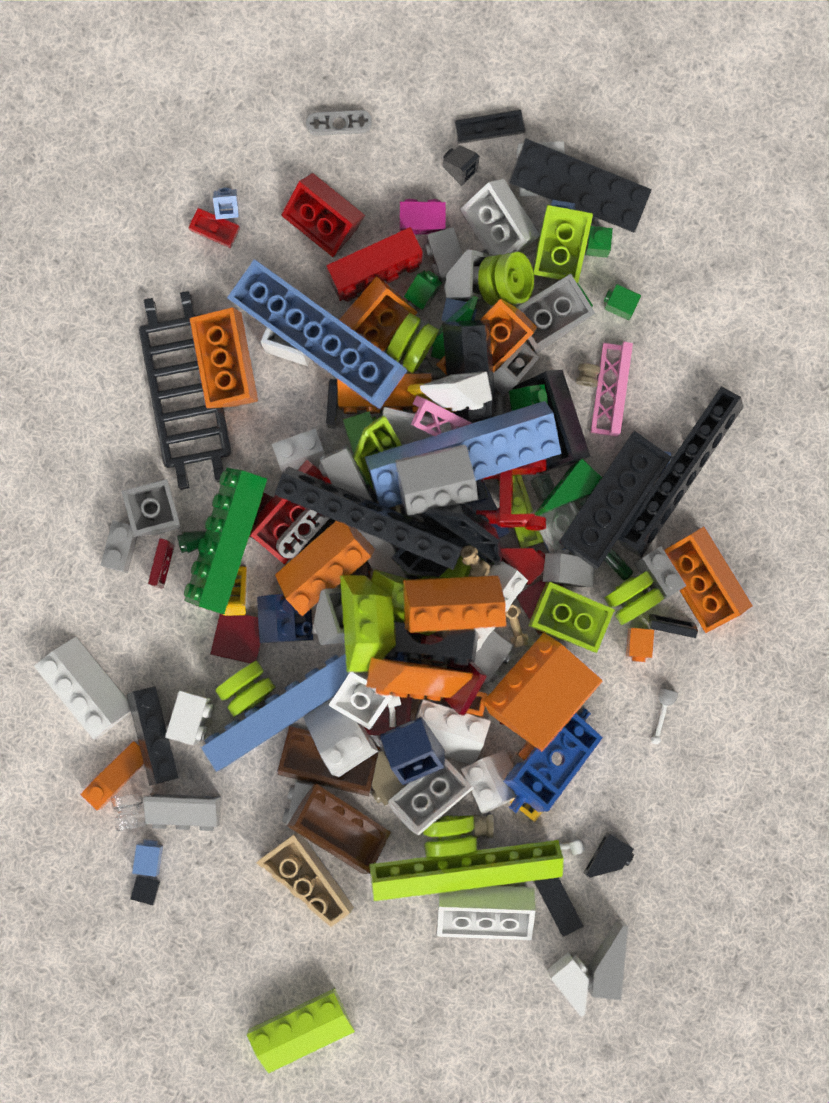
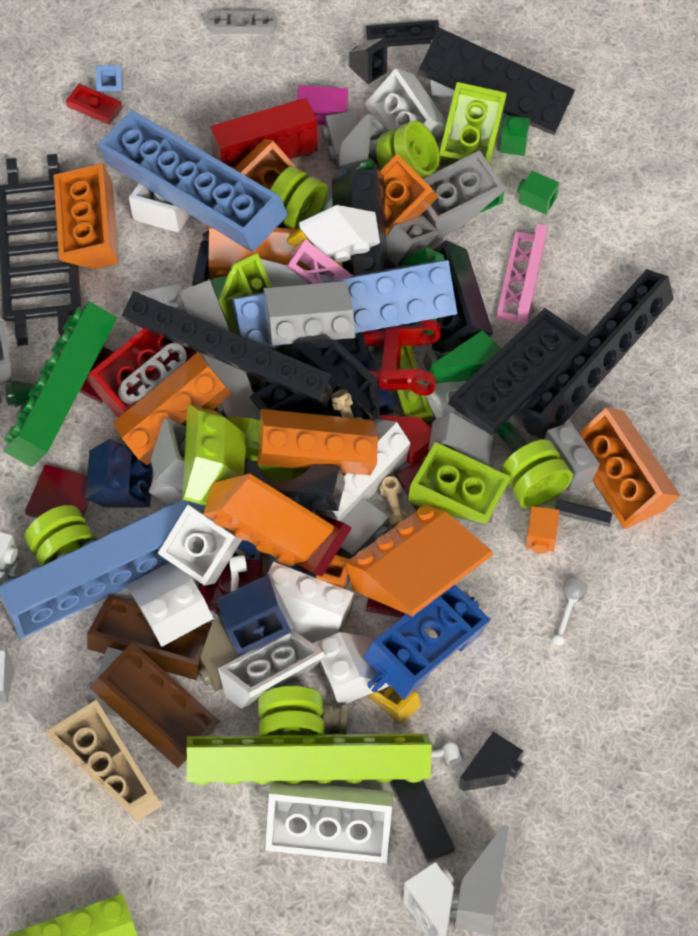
camera: 10 degrees right, 25 degrees down
(237, 604) = (64, 450): yellow slope -> none
(322, 214) = (211, 94): red slope -> none
(423, 289) = (318, 163): green brick -> none
(587, 375) = (495, 258): dark tan wheel -> none

